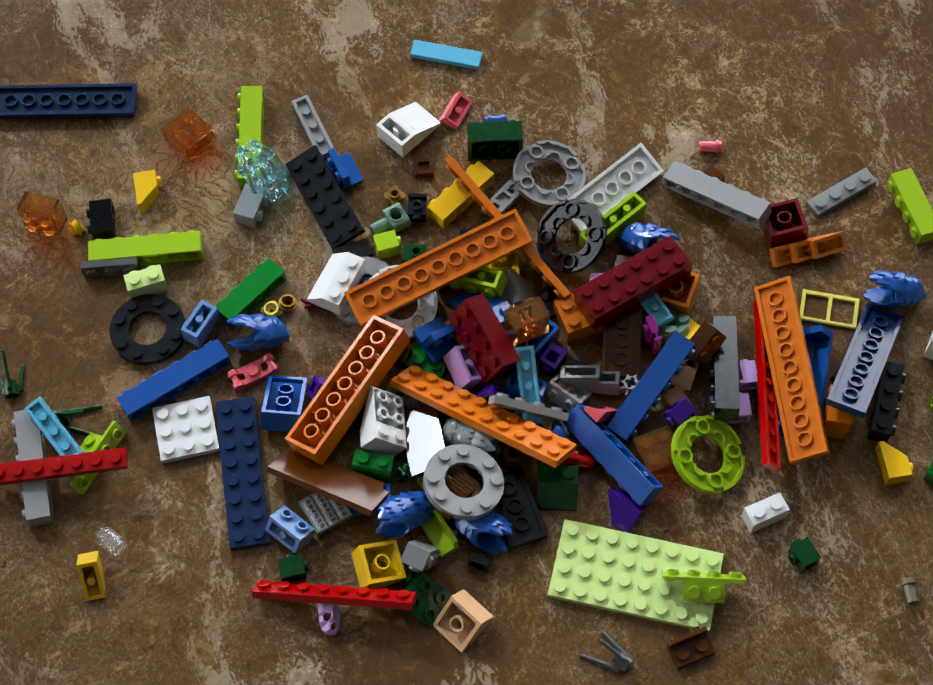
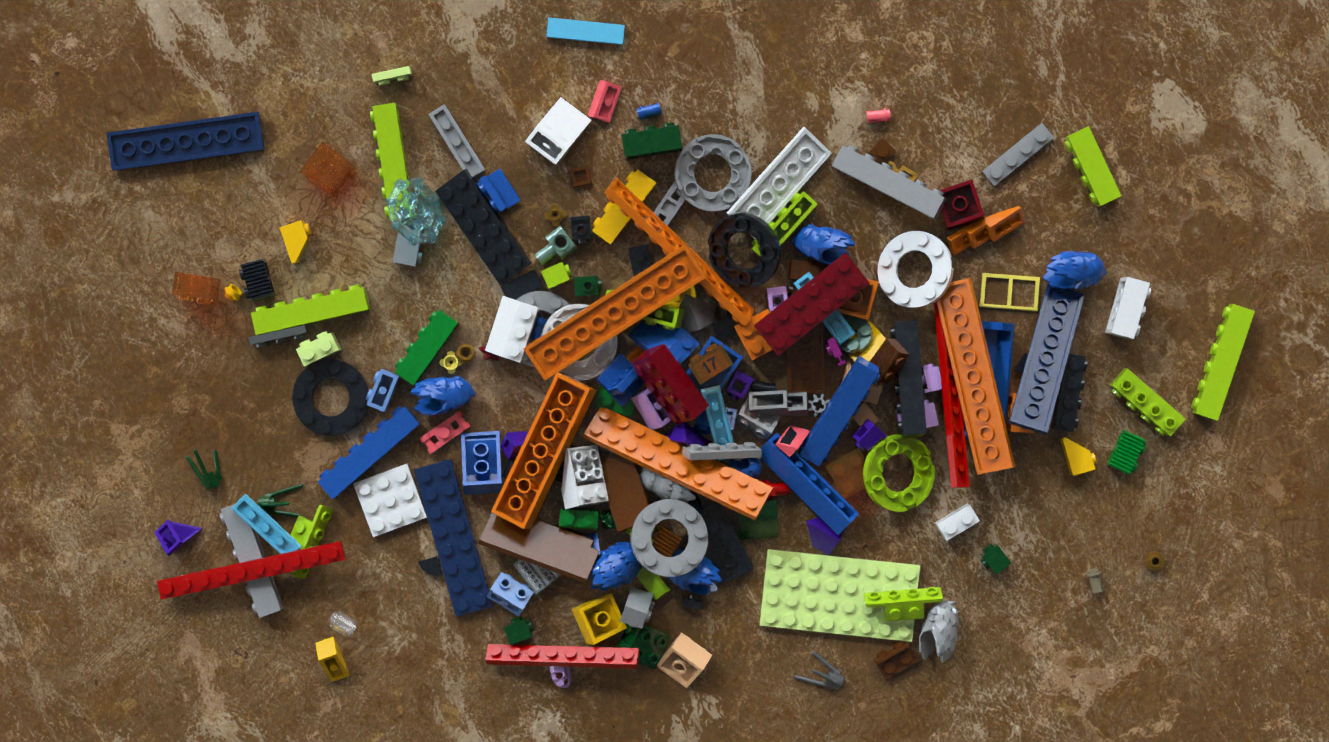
camera: 15 degrees left, 25 degrees up
(214, 496) = (431, 566): none -> black tile
(264, 68) = (400, 74): none -> yellowish green plate
(740, 618) = (940, 630): none -> light grey head
(752, 288) = (941, 269): none -> white plate

